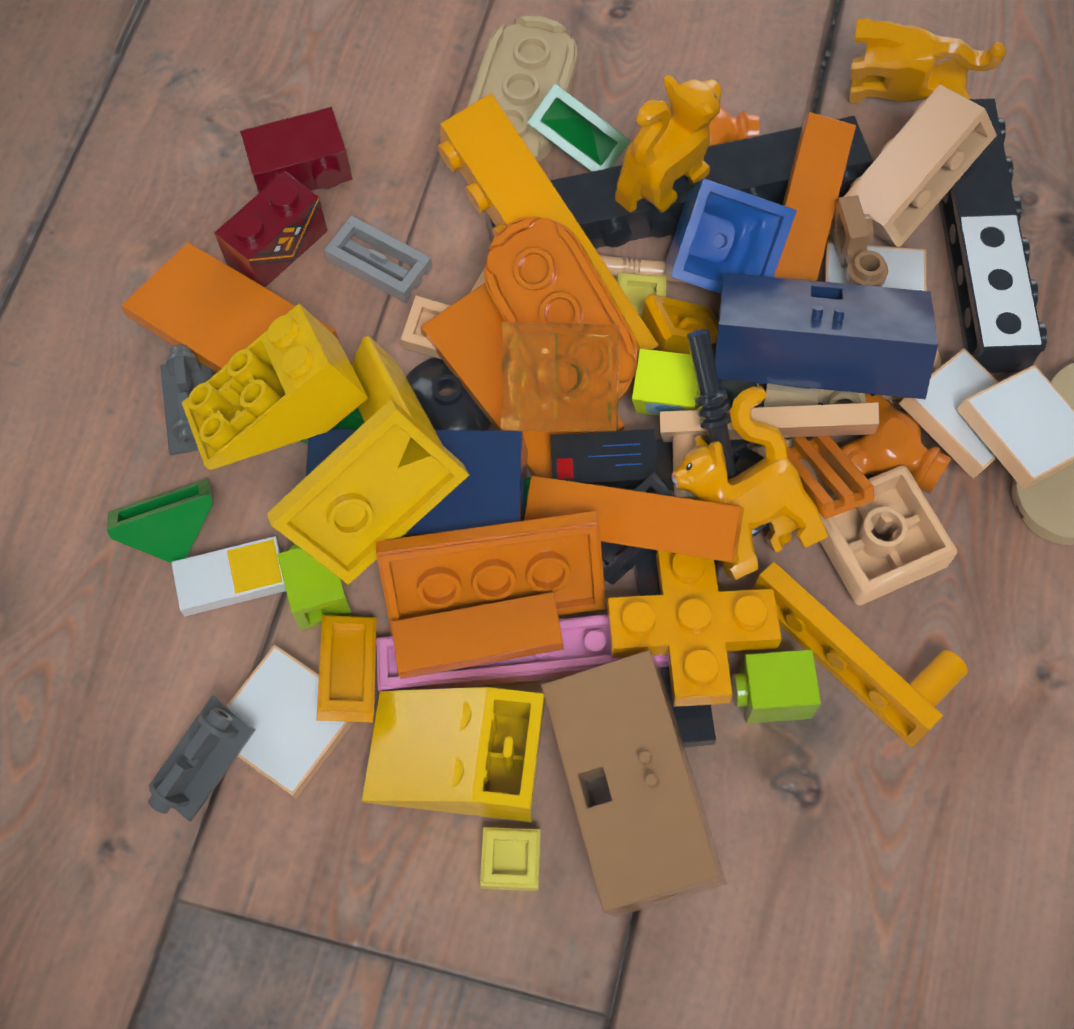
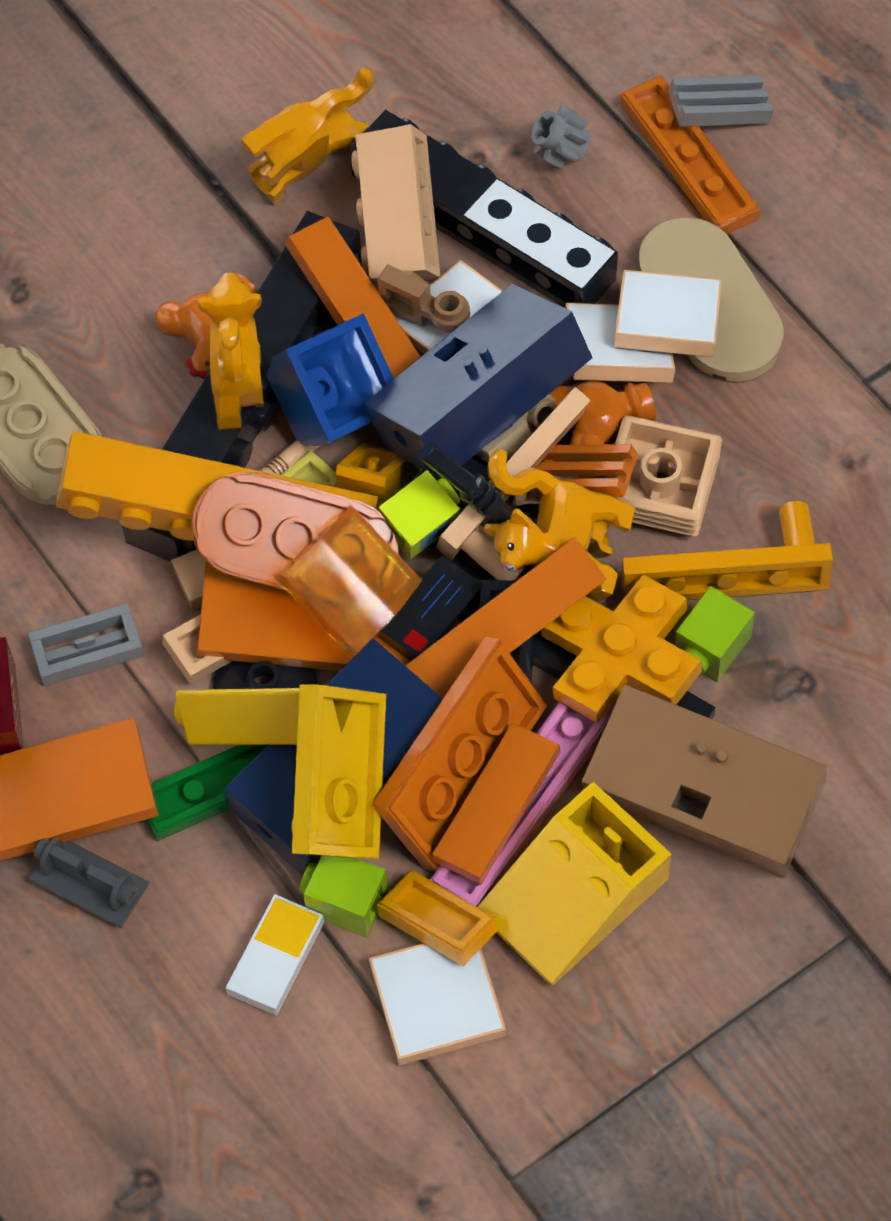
camera: 50 degrees left, 5 degrees down
(163, 523) = (181, 967): green slope -> none
(199, 760) = (419, 1073): dark grey hinge -> none
(274, 392) = (170, 791): yellow slope -> none
(510, 859) = (683, 914): light yellow tile -> none
(578, 130) = (122, 408): green slope -> none

